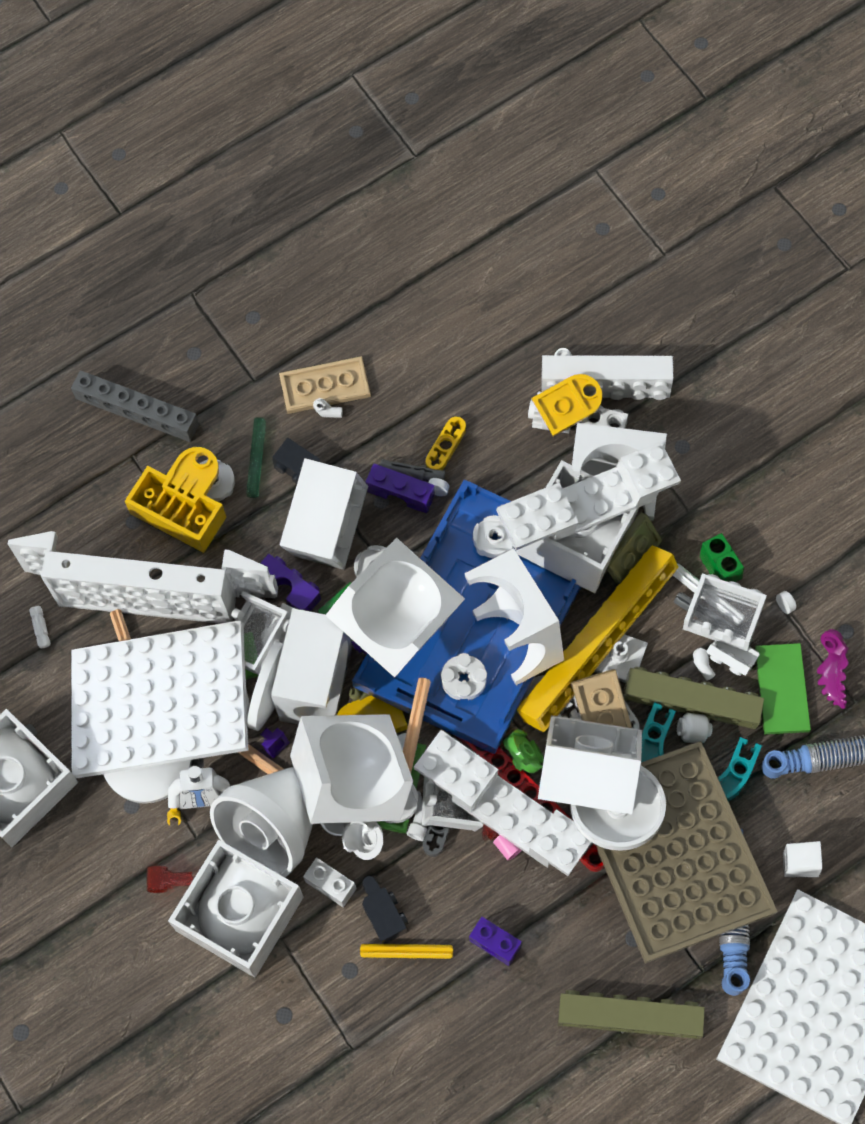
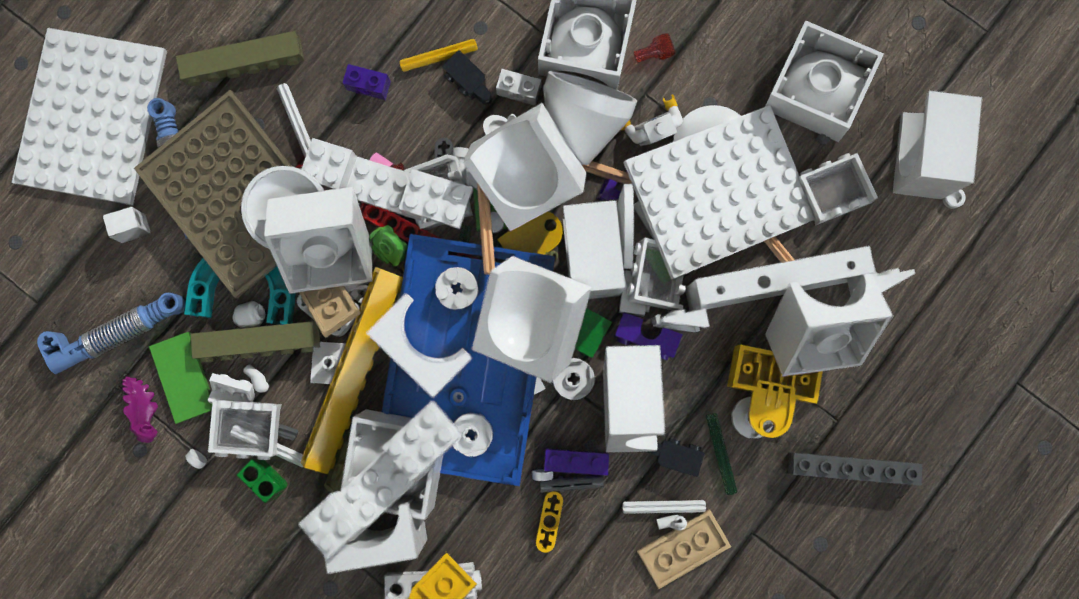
camera: 165 degrees right, 15 degrees up
(38, 673) = (837, 188): none -> window
(39, 627) = (853, 231): white axle -> none
(111, 517) = (825, 337): none -> white piece
(330, 426) = (664, 506): none -> white axle
(587, 926) = (294, 117): none -> white axle

